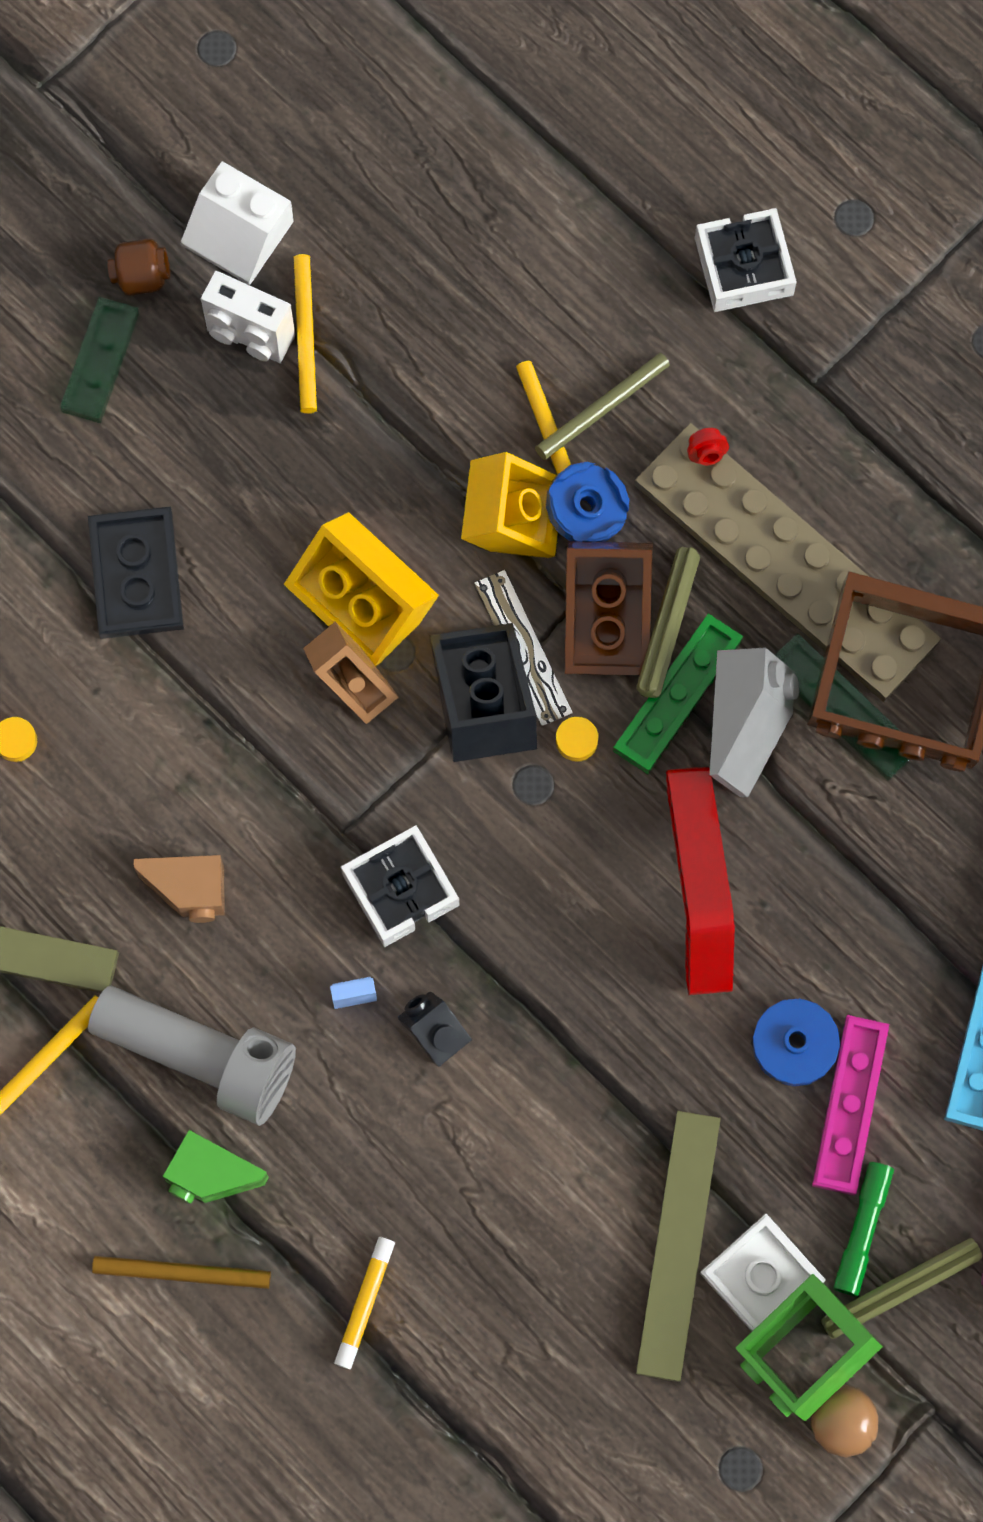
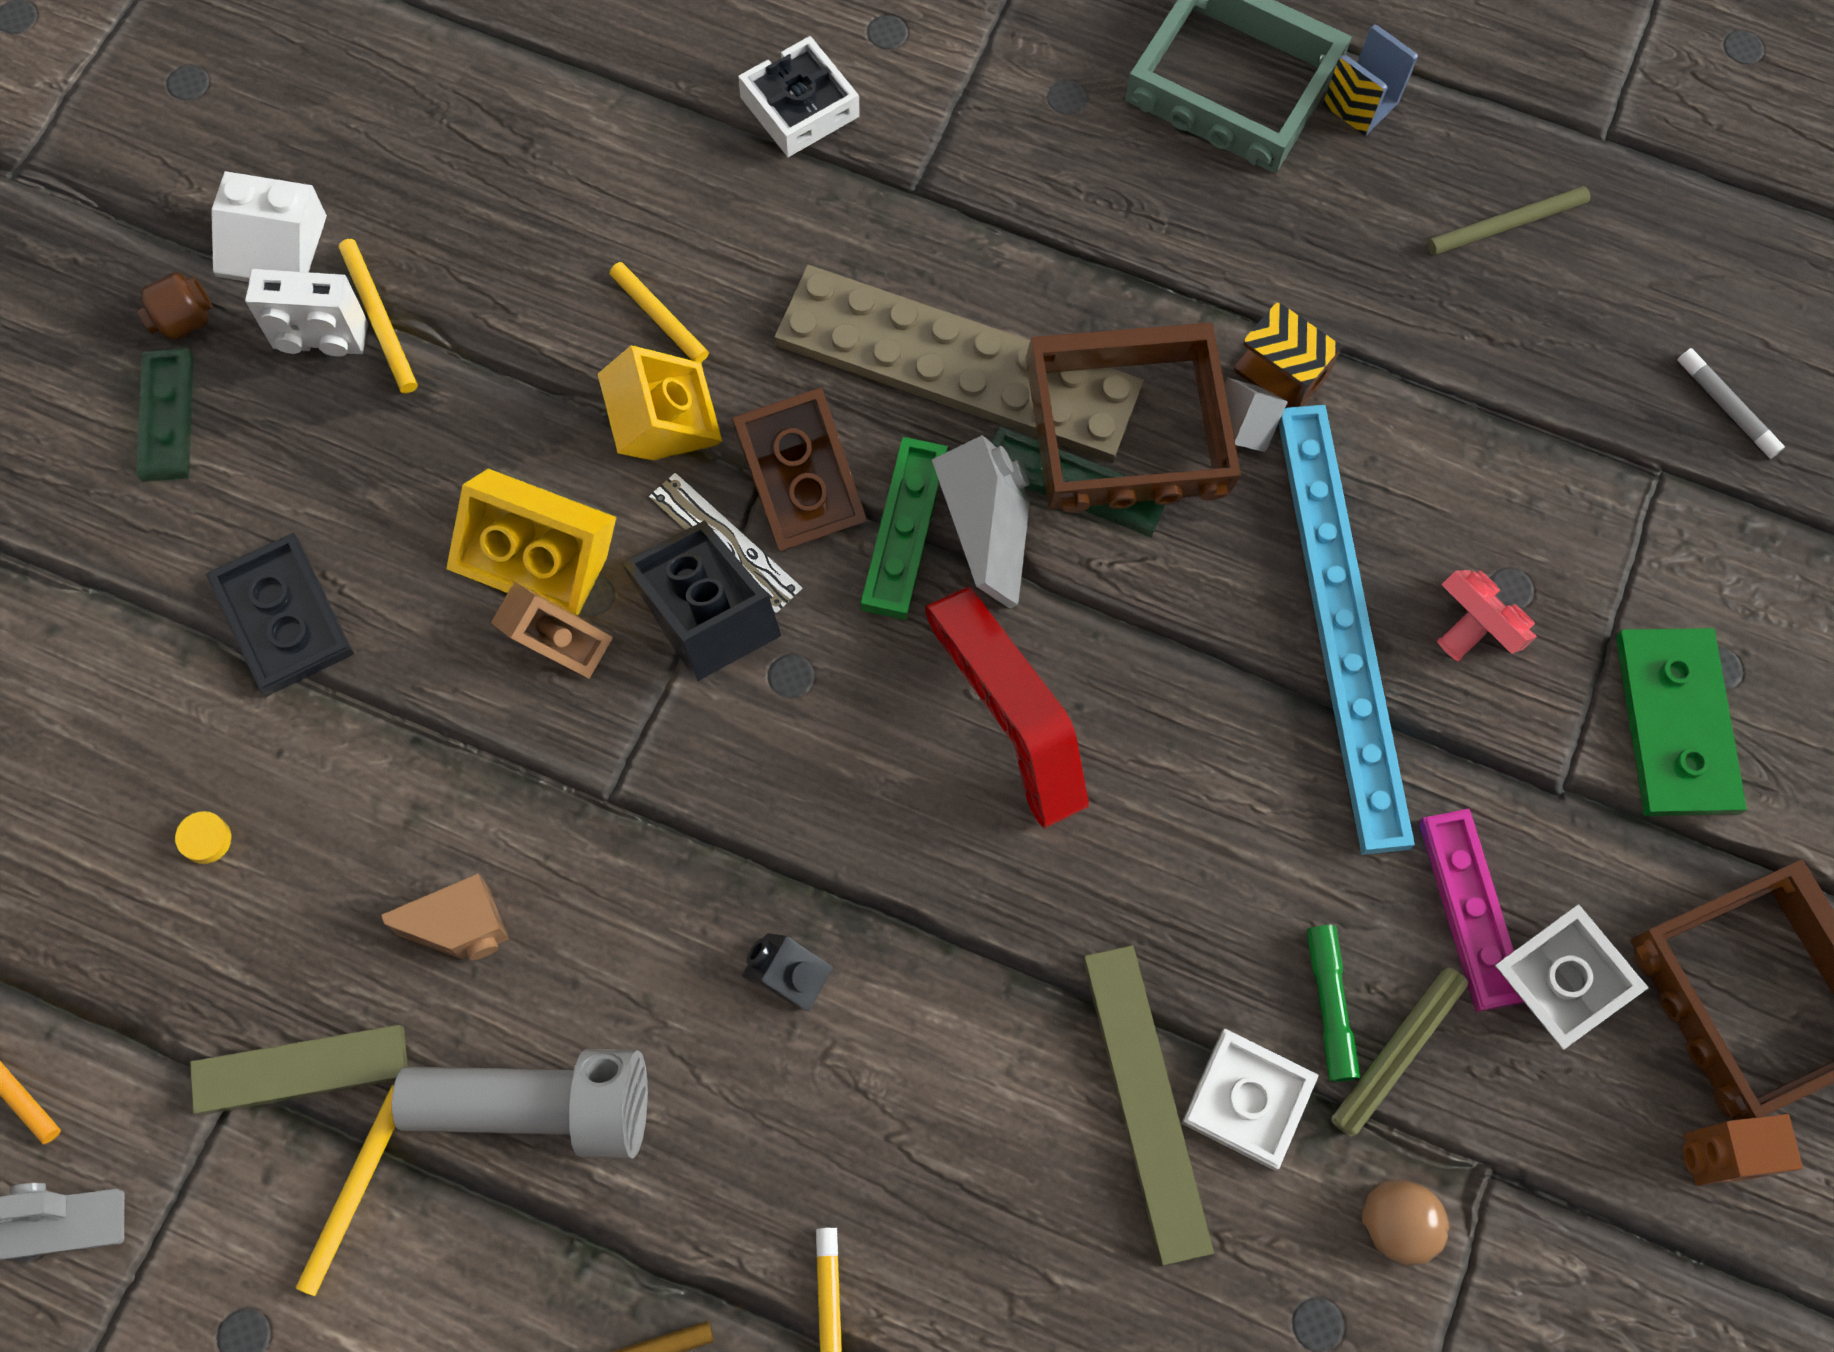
camera: 25 degrees left, 5 degrees down
(209, 1171) = (595, 1234): bright green slope -> none
(353, 992) = (683, 967): light blue tile -> none
(383, 881) = (670, 837): piece -> none
(576, 739) = (818, 611): yellow tile -> none
(597, 487) = (737, 358): blue plate -> none
(602, 406) = (711, 280): olive bar -> none
(668, 622) = (865, 461): olive axle -> none
(707, 446) = (835, 274): red plate -> none
(781, 1322) = (1320, 1092): bright green window -> none
(791, 1064) = (1173, 858): blue plate -> none
(850, 1105) = (1260, 879): dark pink tile -> none

